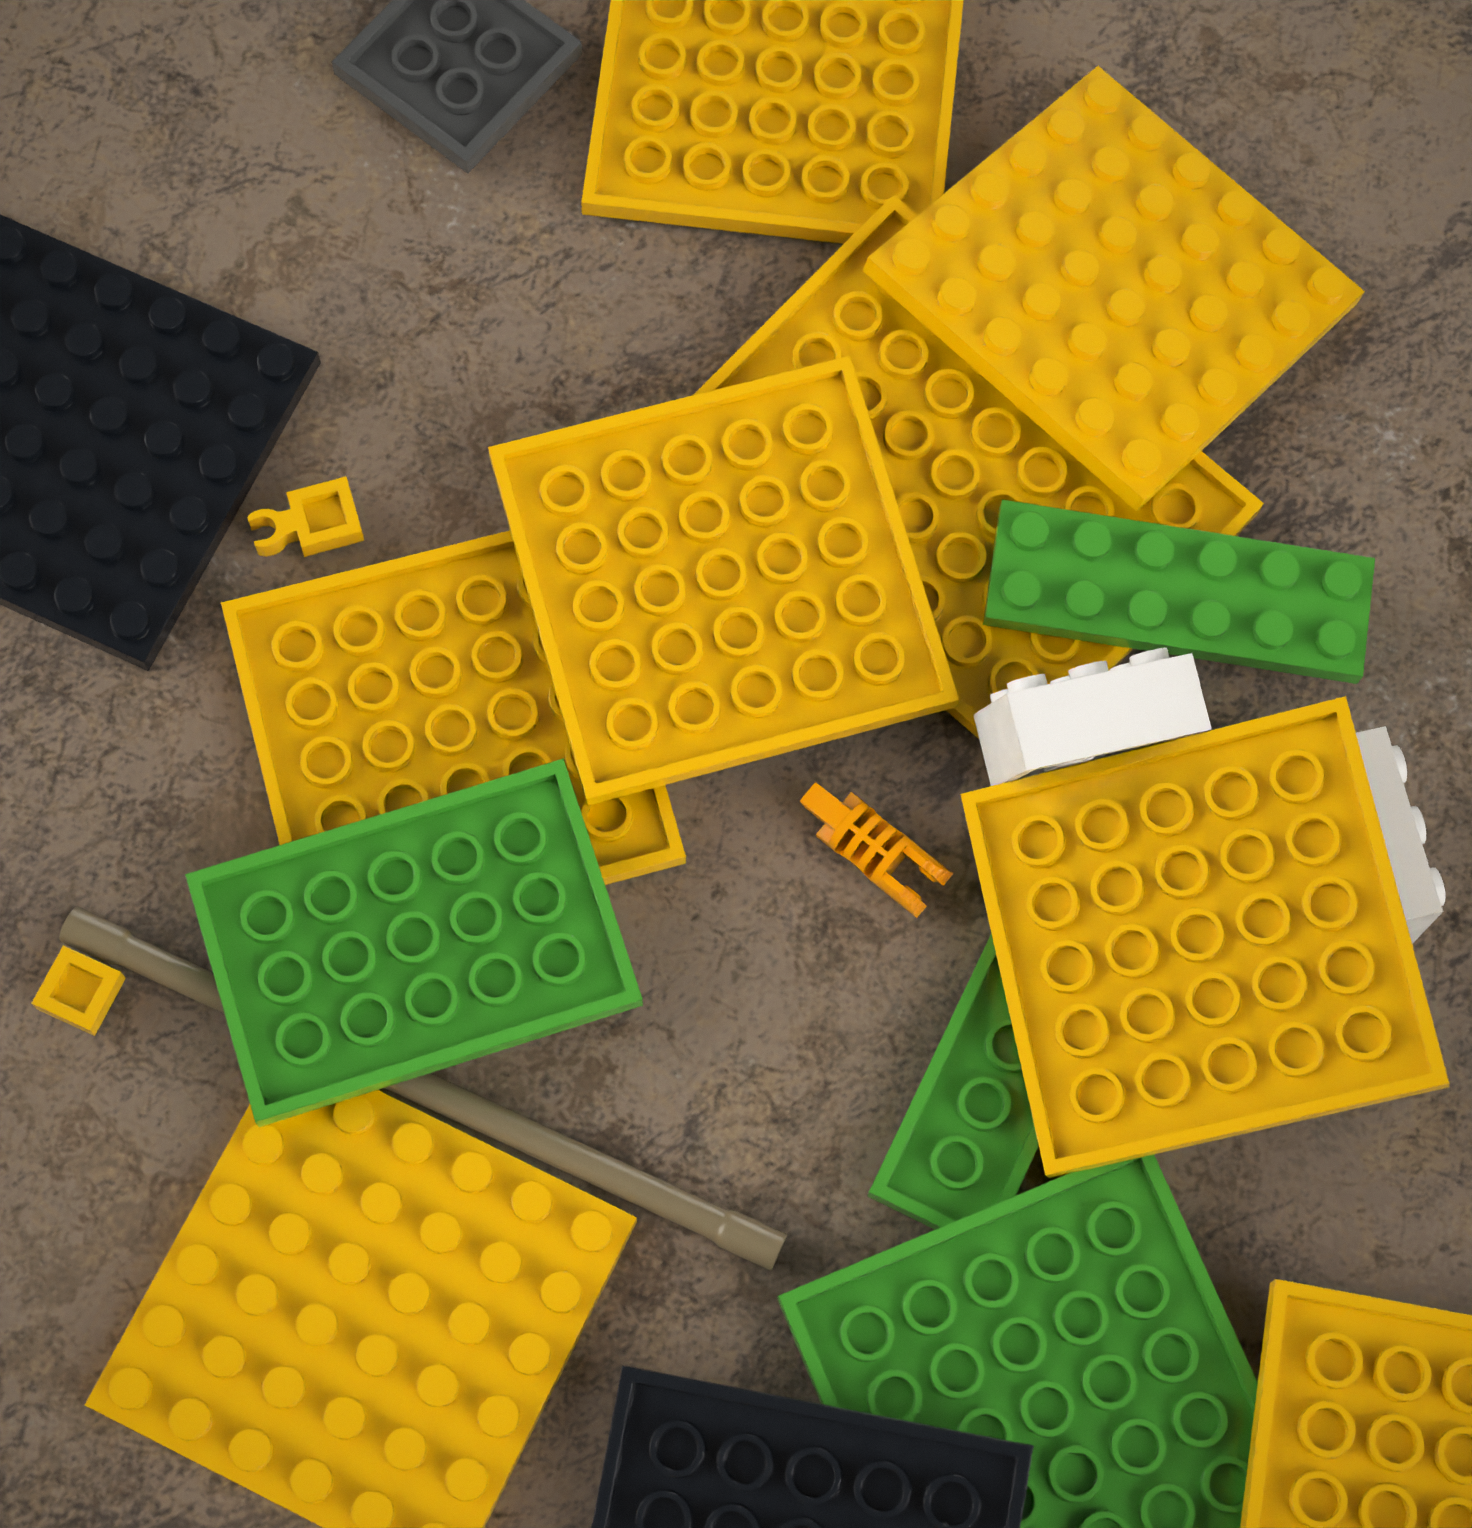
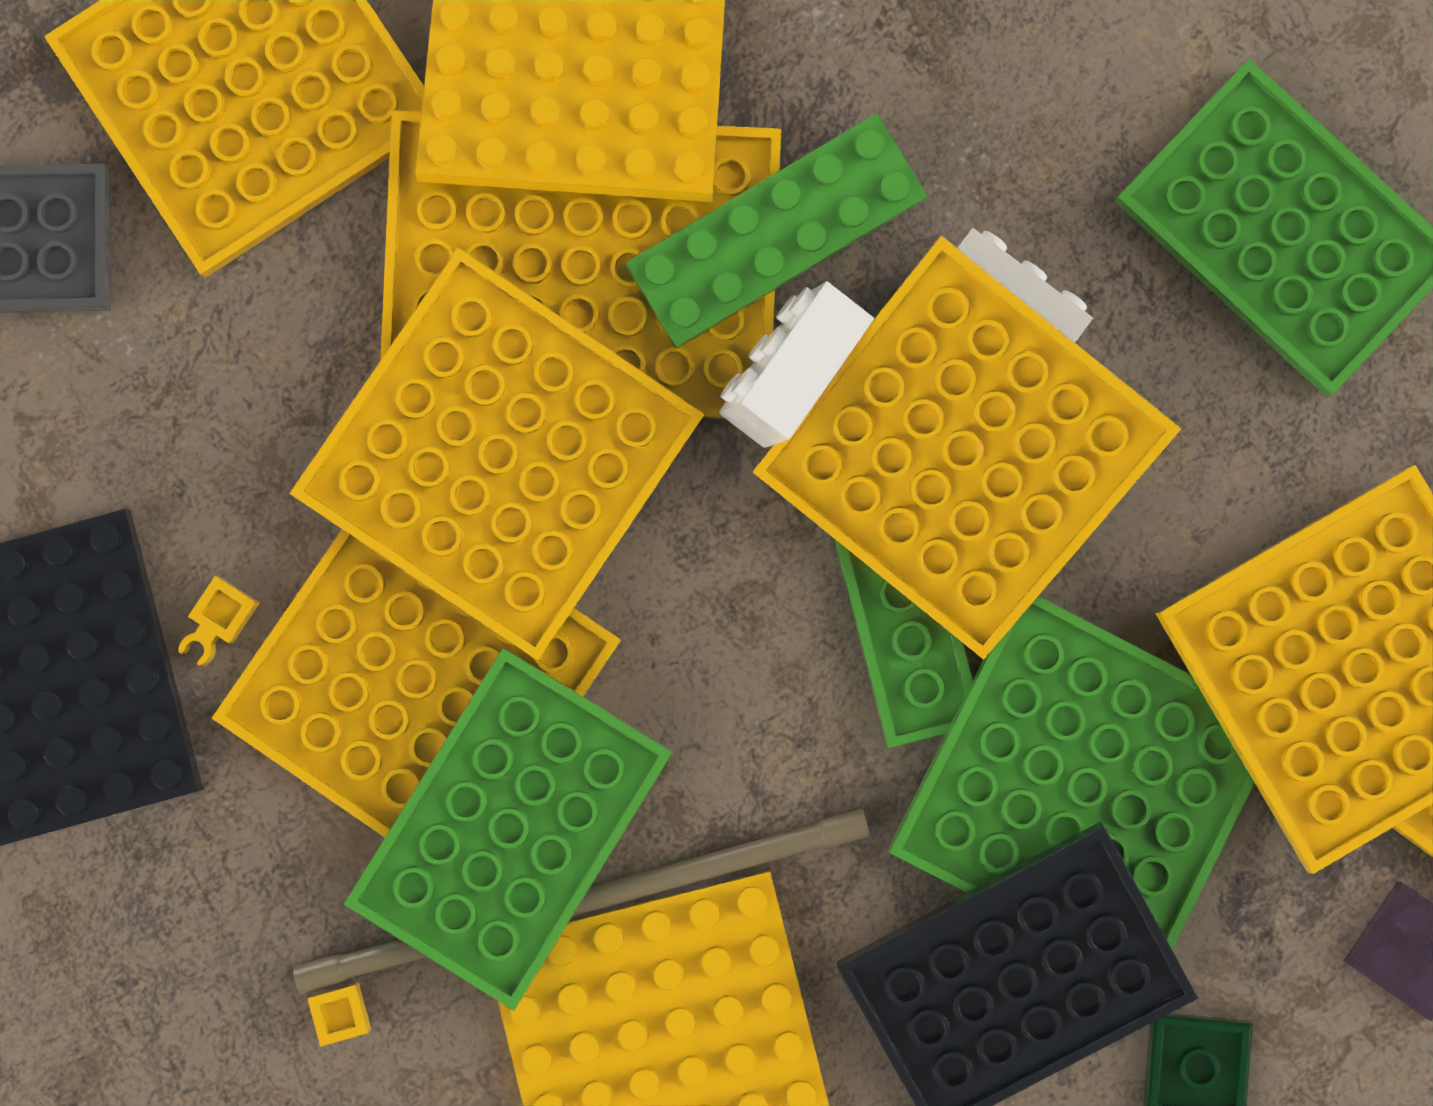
camera: 35 degrees left, 15 degrees up
(871, 844) = (721, 539): light orange hinge -> none

